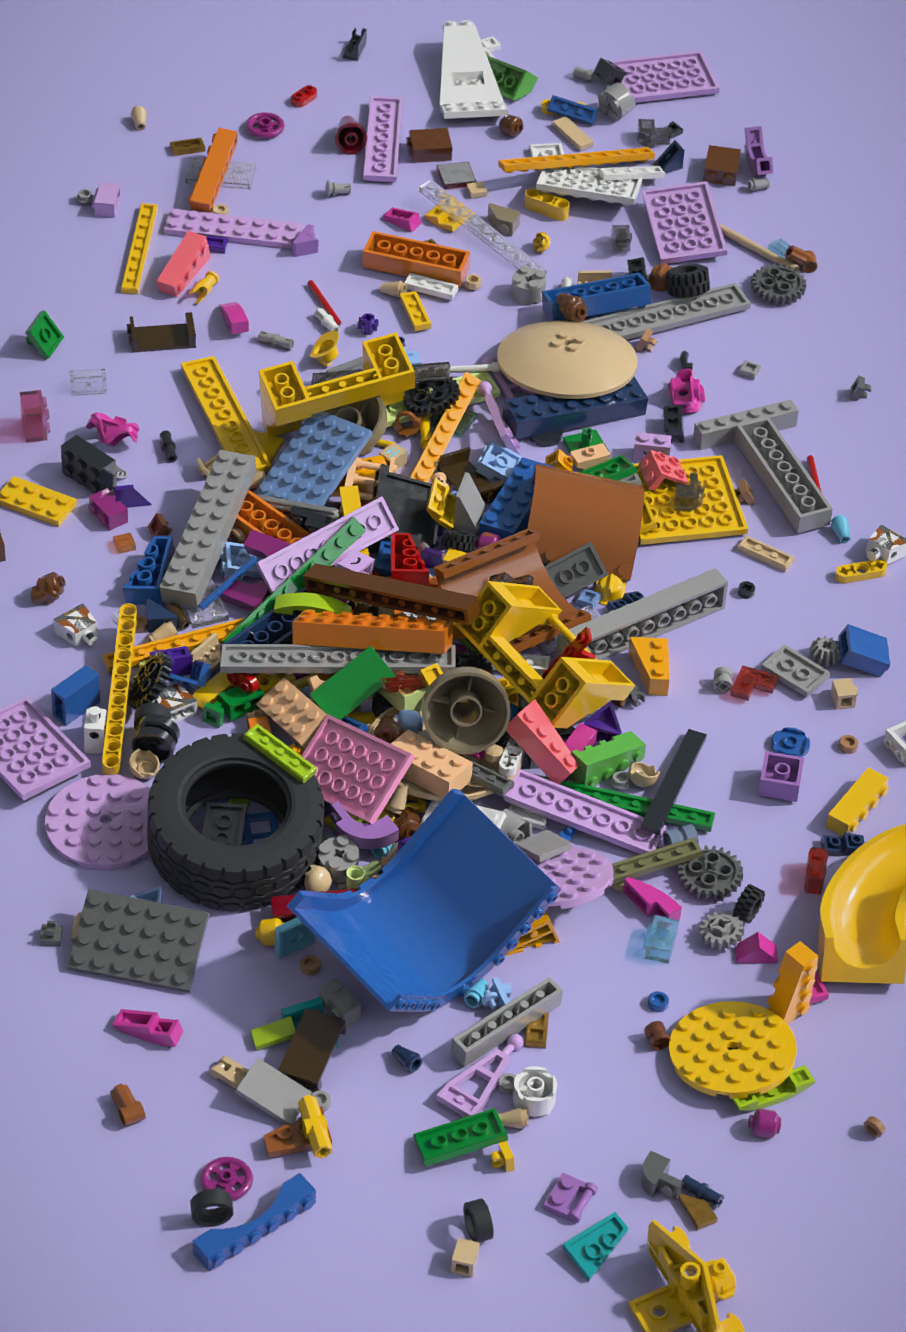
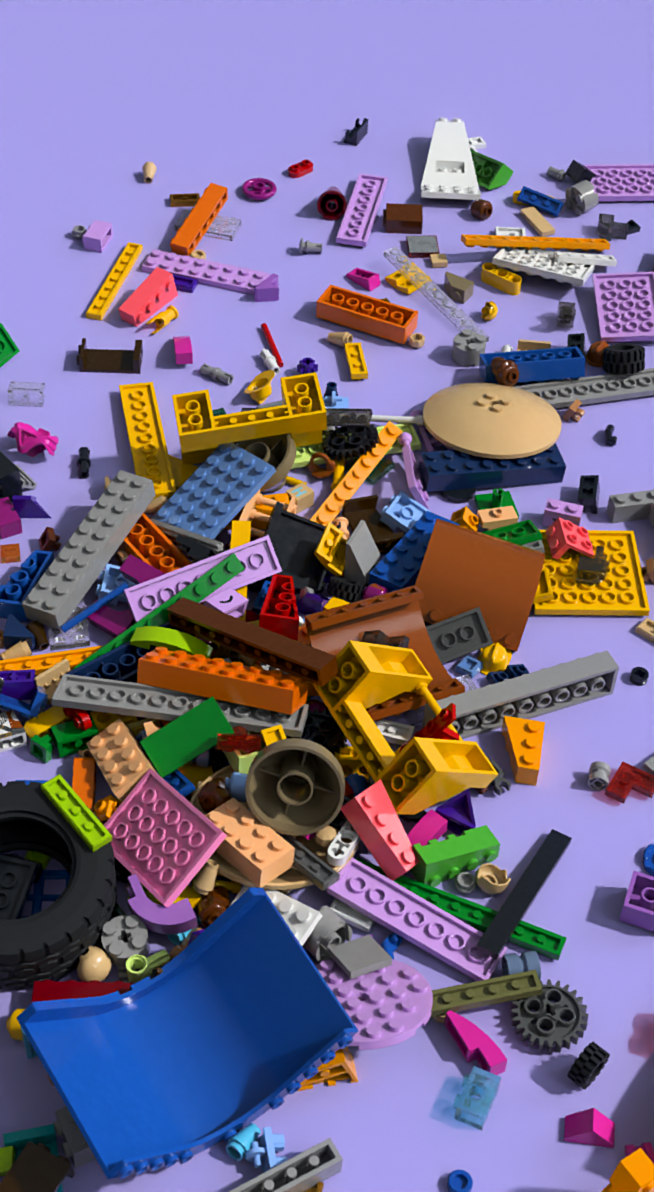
camera: 10 degrees right, 0 degrees up
(431, 286) = (376, 340): white plate -> none
(671, 158) = (625, 250): dark blue slope -> none
(685, 382) = (606, 454): dark pink piece -> none
(721, 930) = (551, 1096): light grey gear -> none

